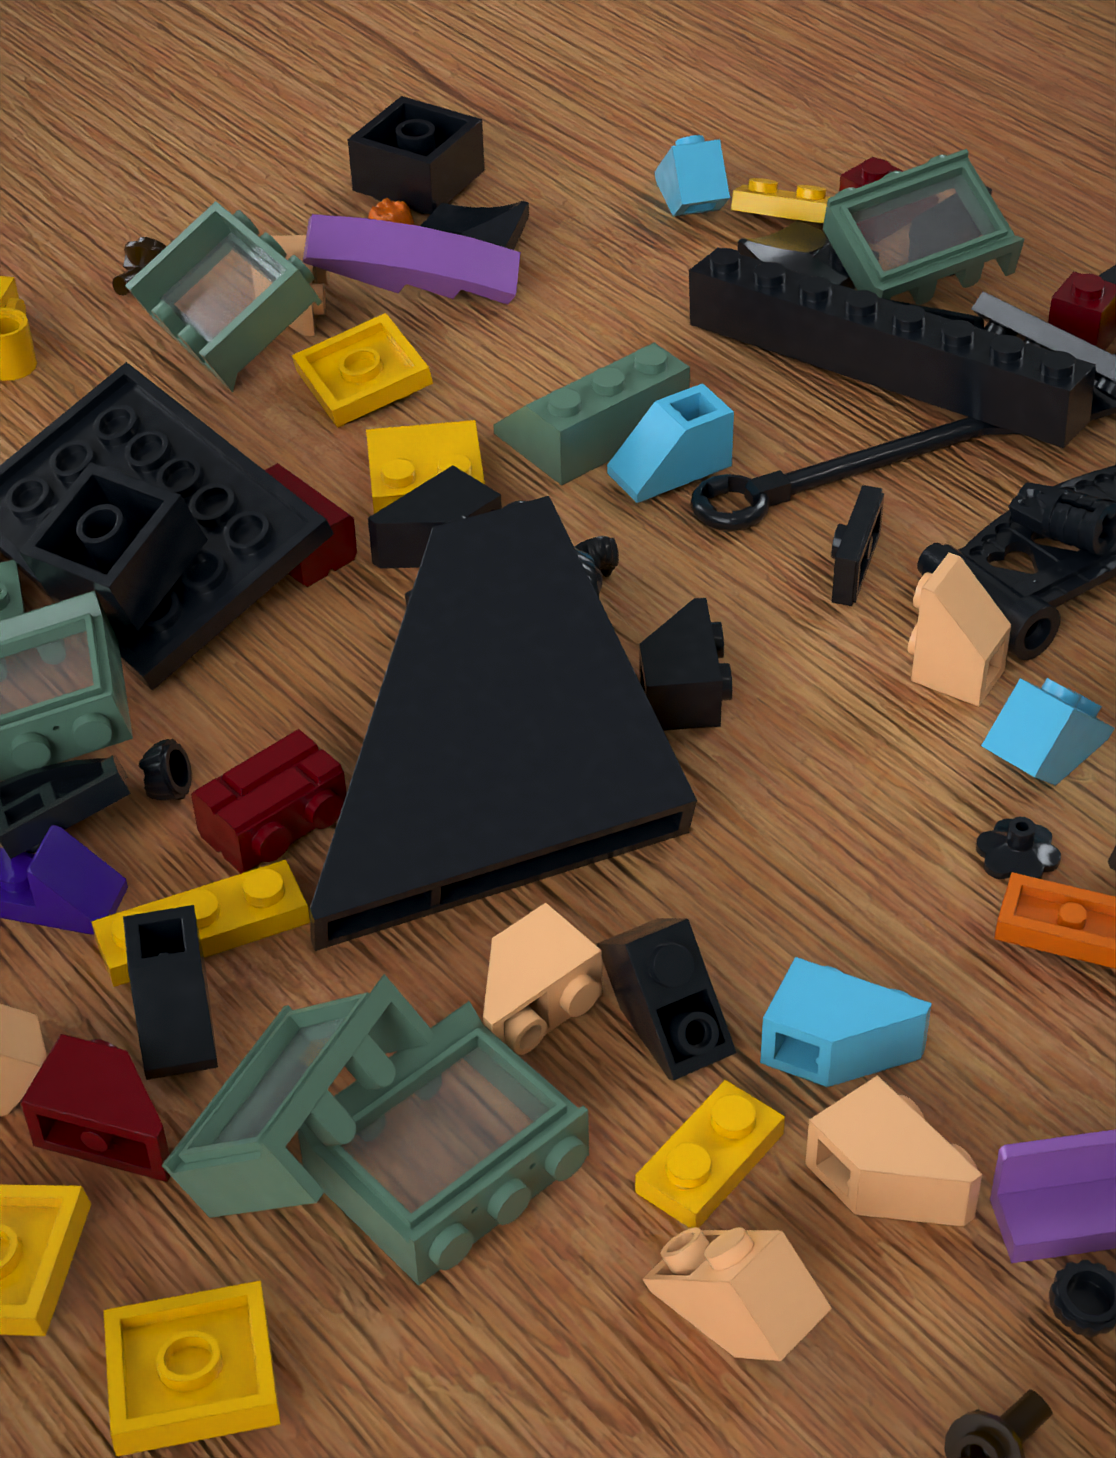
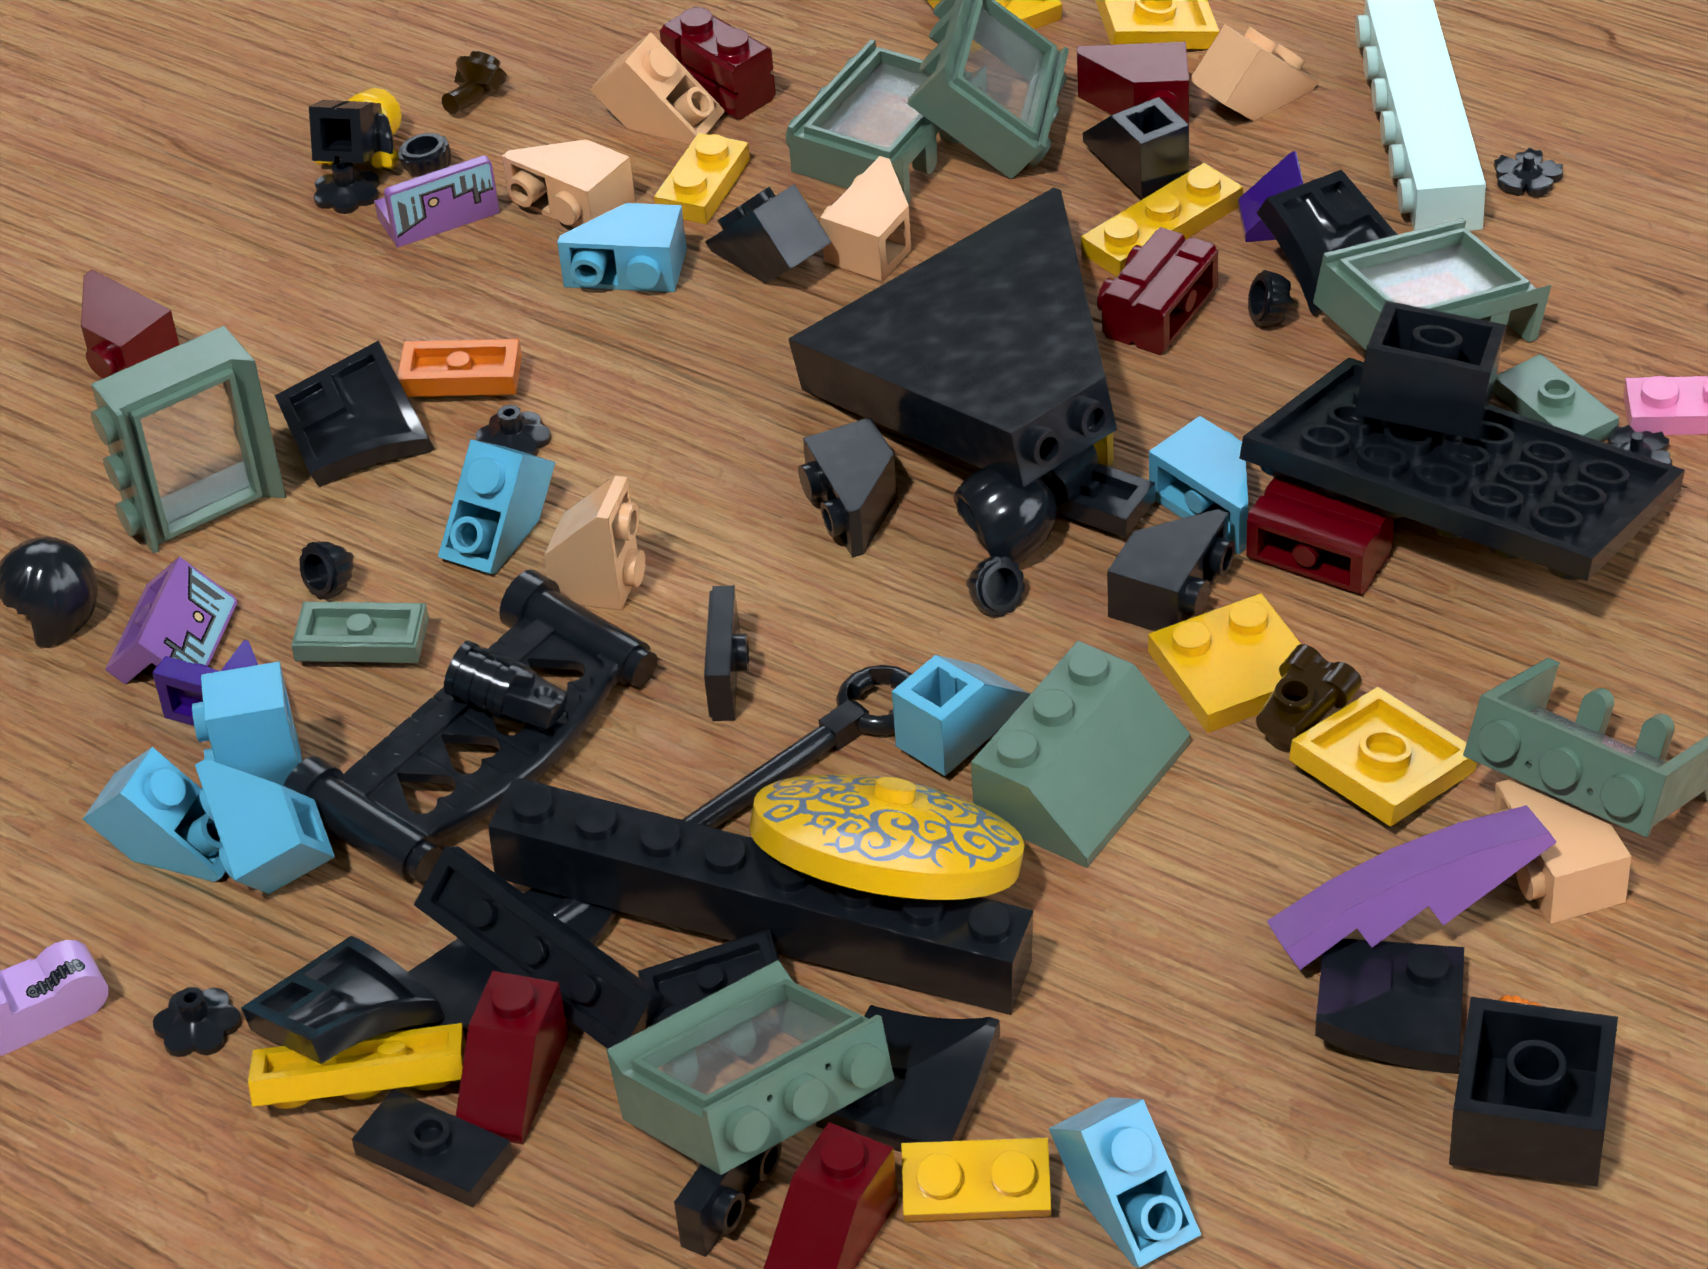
camera: 165 degrees right, 0 degrees up
(354, 593) = (1201, 473): none -> medium azure slope
(399, 401) = (1305, 695): none -> dark brown plate
(633, 1321) = (722, 60): none -> dark red brick
(781, 332) = (886, 836): none -> yellow dish

